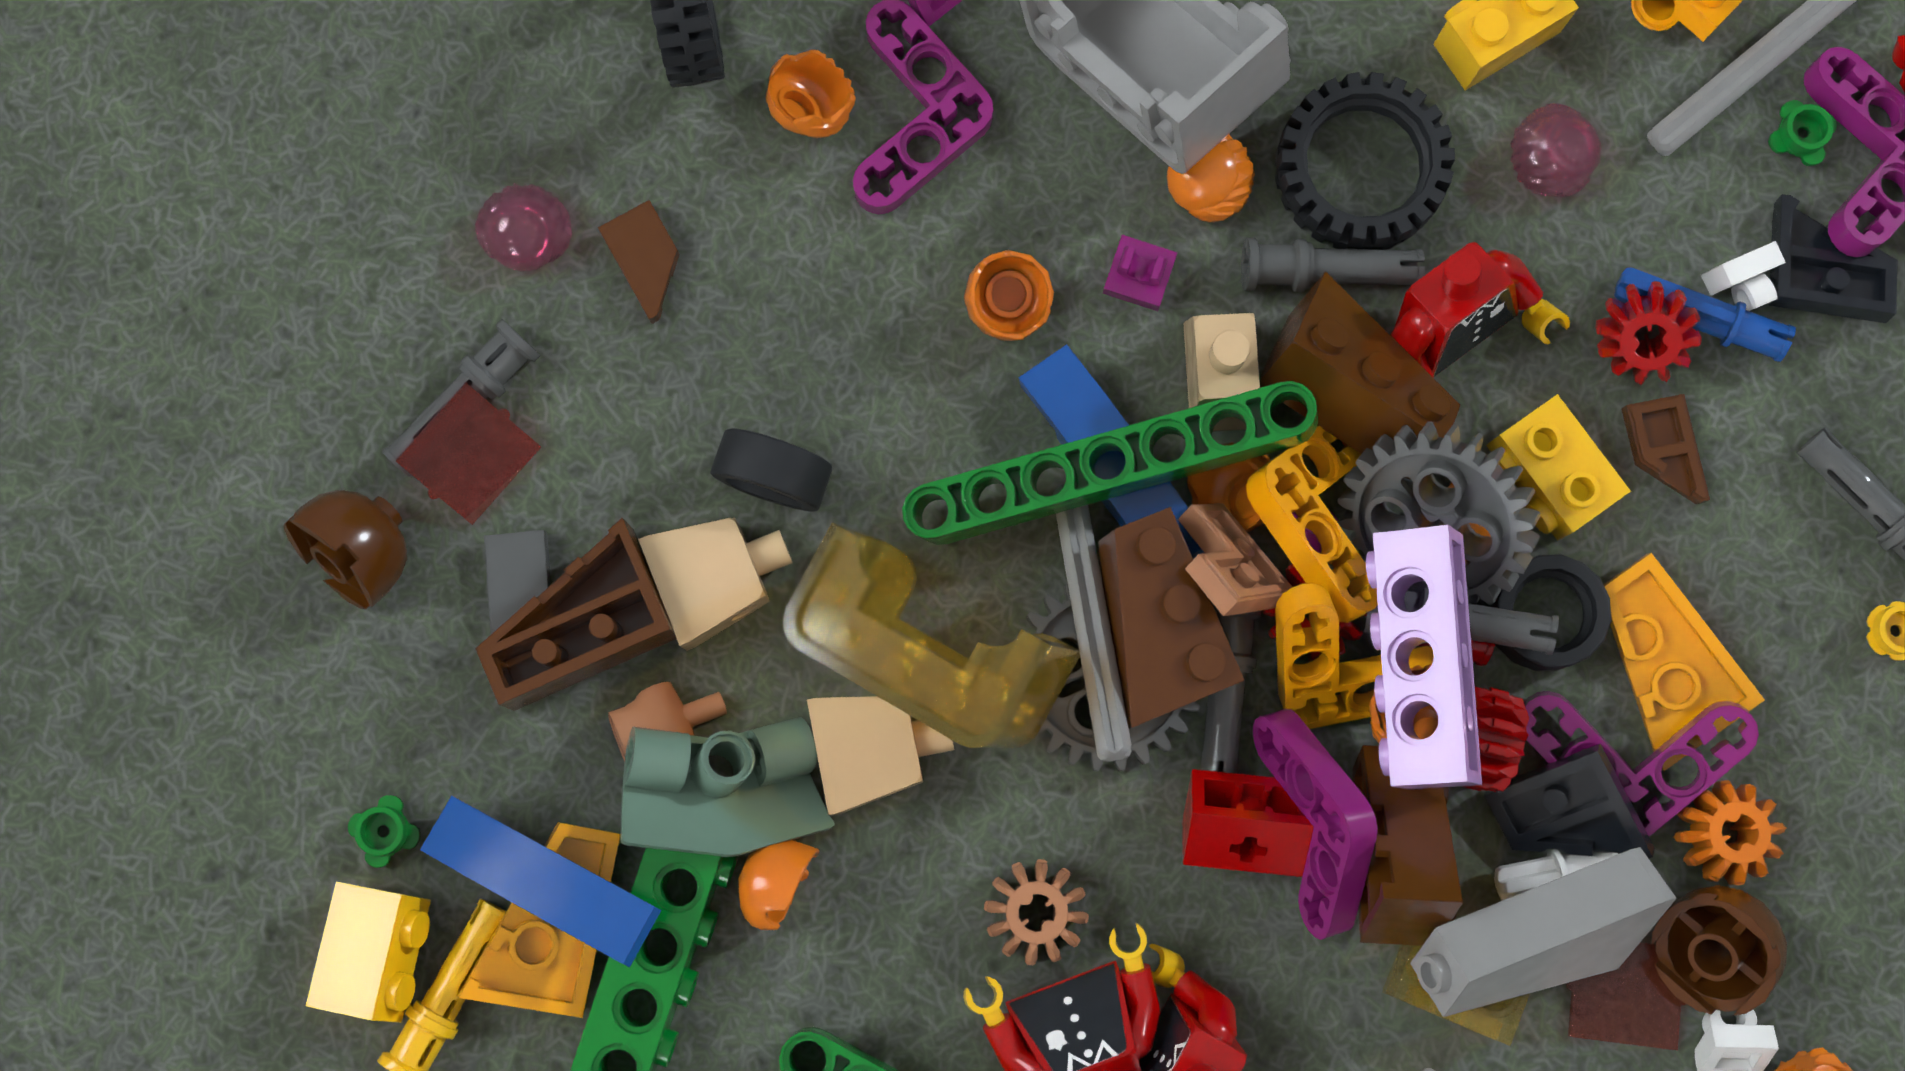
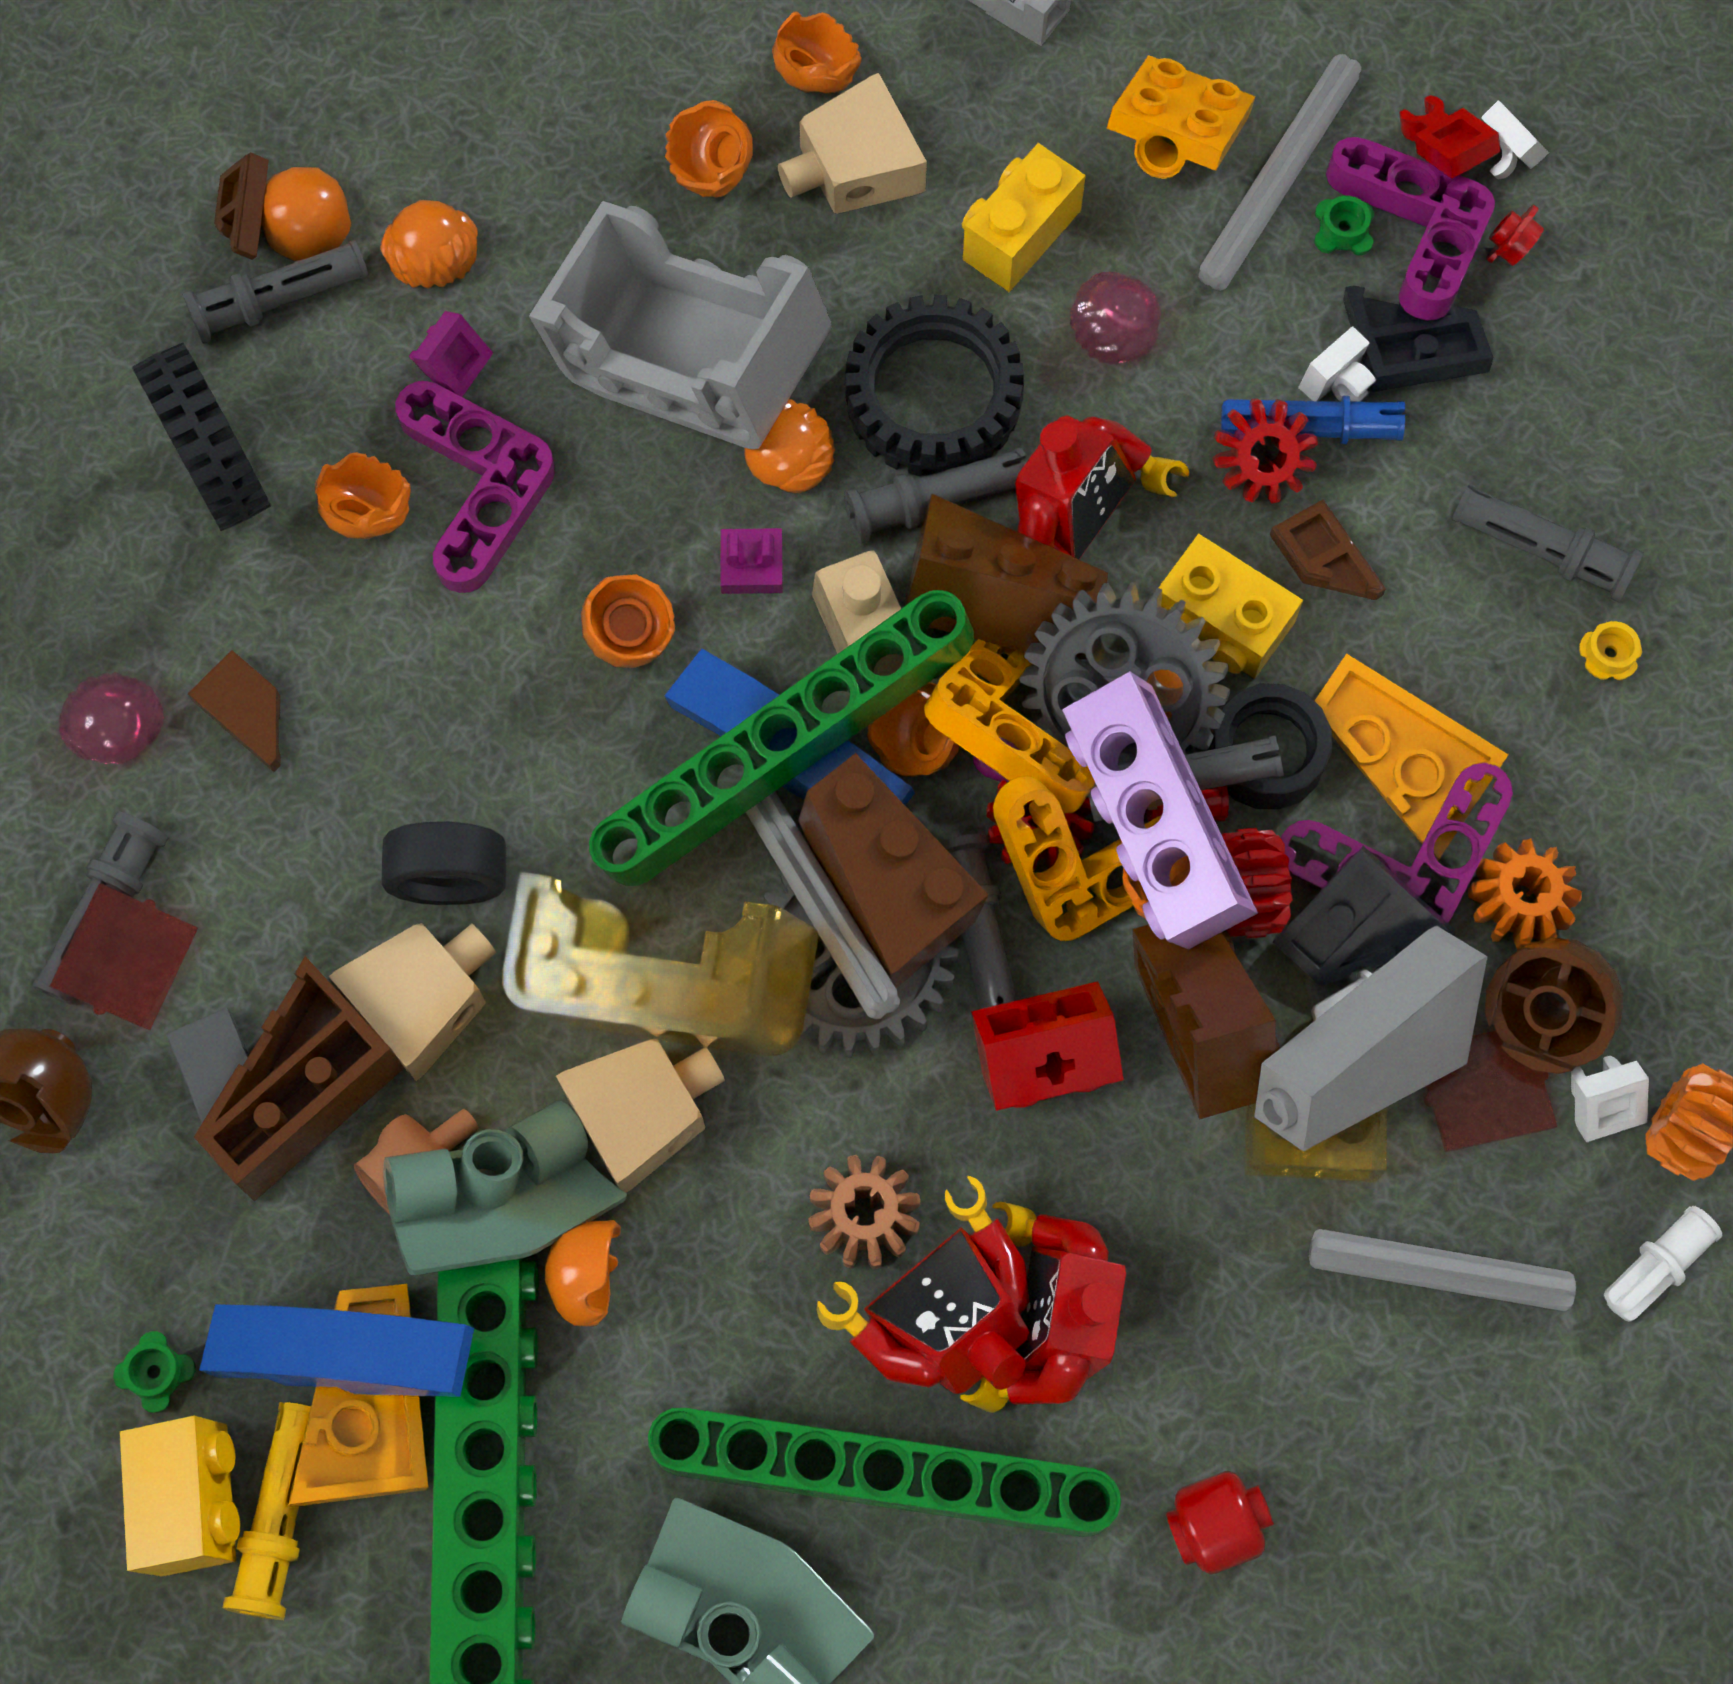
camera: 20 degrees left, 10 degrees down
(1233, 568) = (934, 791): nougat tile -> none
(1337, 810) = (1139, 1012): magenta beam -> none

